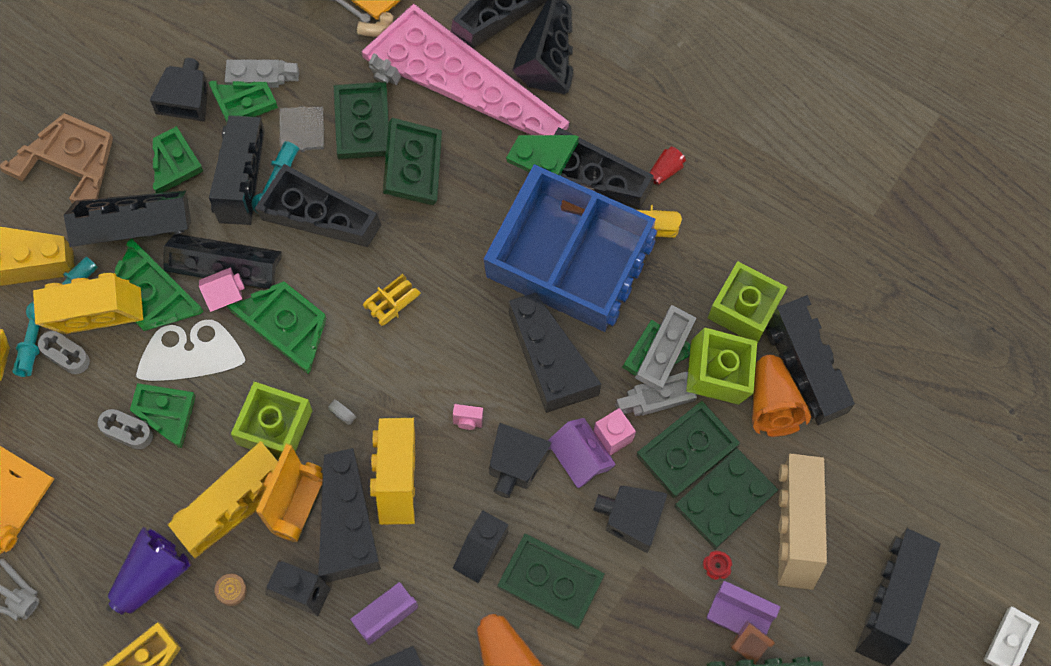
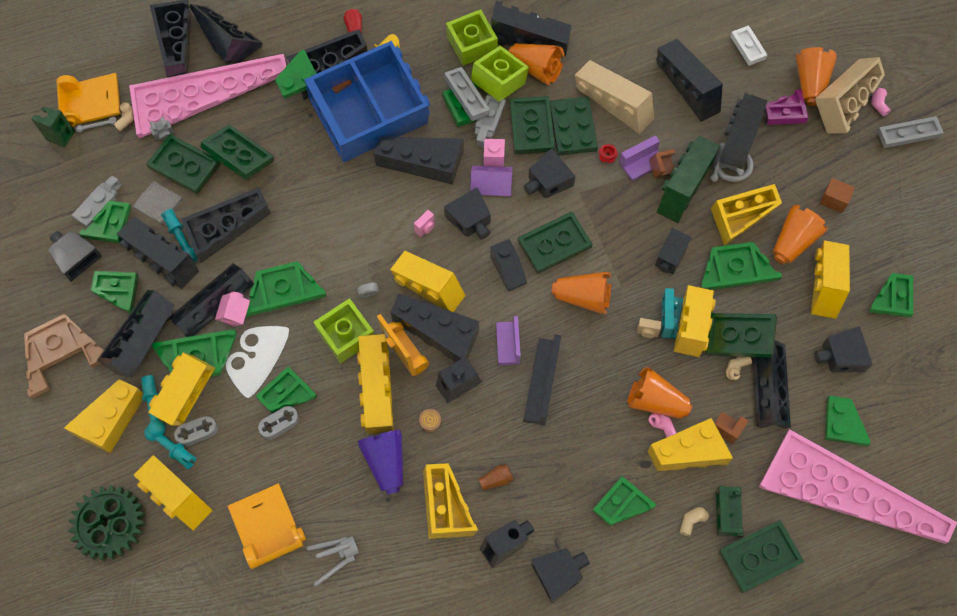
camera: 50 degrees left, 0 degrees up
(394, 297) = (317, 221): yellow arm -> none

